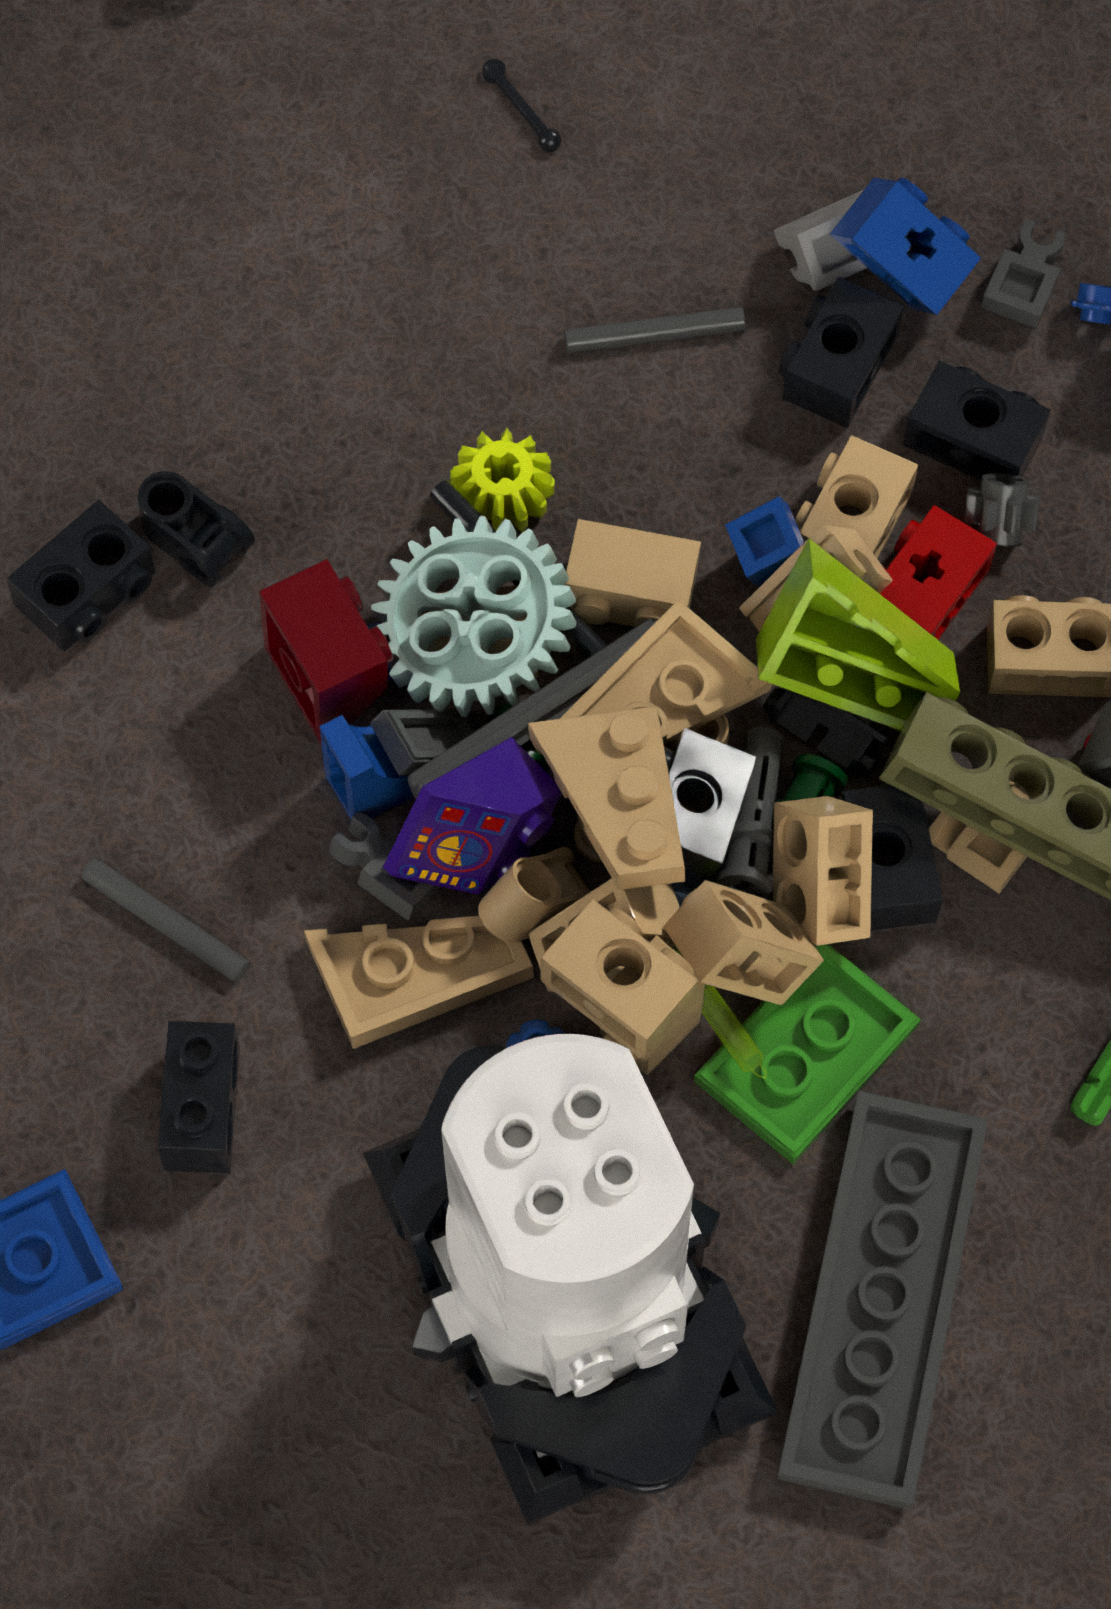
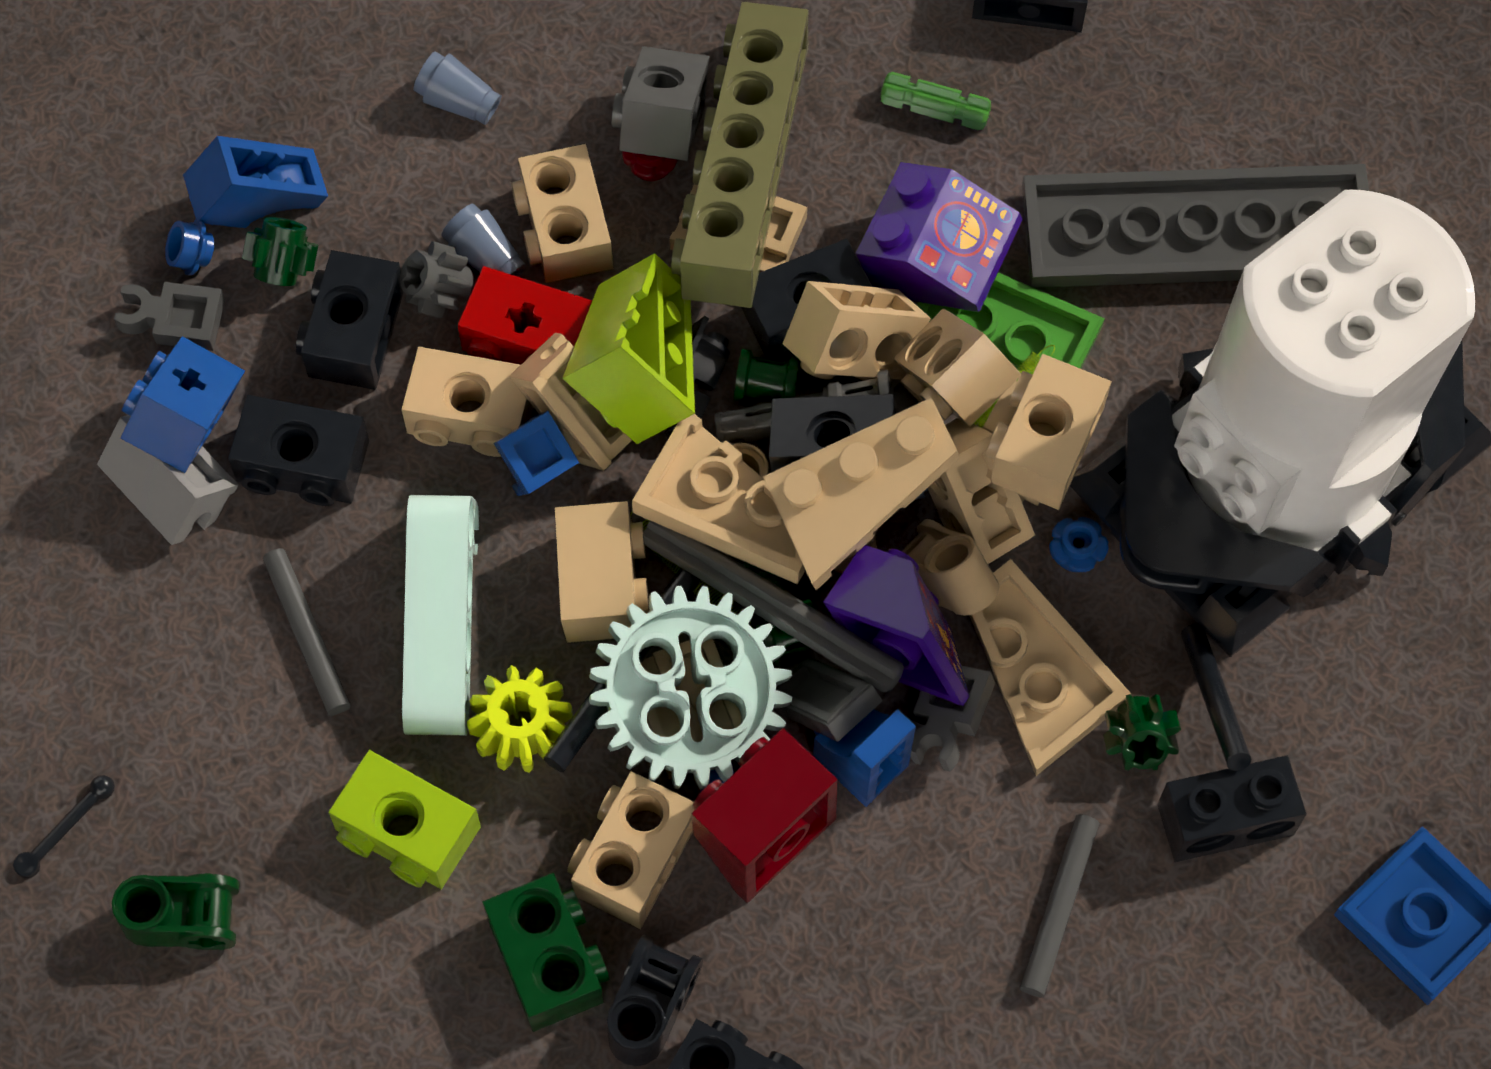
camera: 105 degrees left, 0 degrees up
(264, 435) = (533, 956): none -> dark green brick
(307, 1038) = (1142, 732): none -> dark green gear
(312, 1112) = (1216, 697): none -> black bar
(348, 541) = (646, 853): none -> tan brick
(401, 175) = (182, 911): none -> dark green piece
(422, 393) = (385, 791): none -> lime brick
(639, 426) = (438, 613): none -> light aqua beam
(922, 995) = (937, 238): none -> dark purple slope
(1036, 565) = (482, 241): none -> sand blue cone
(1070, 375) = (280, 251): none -> dark green gear

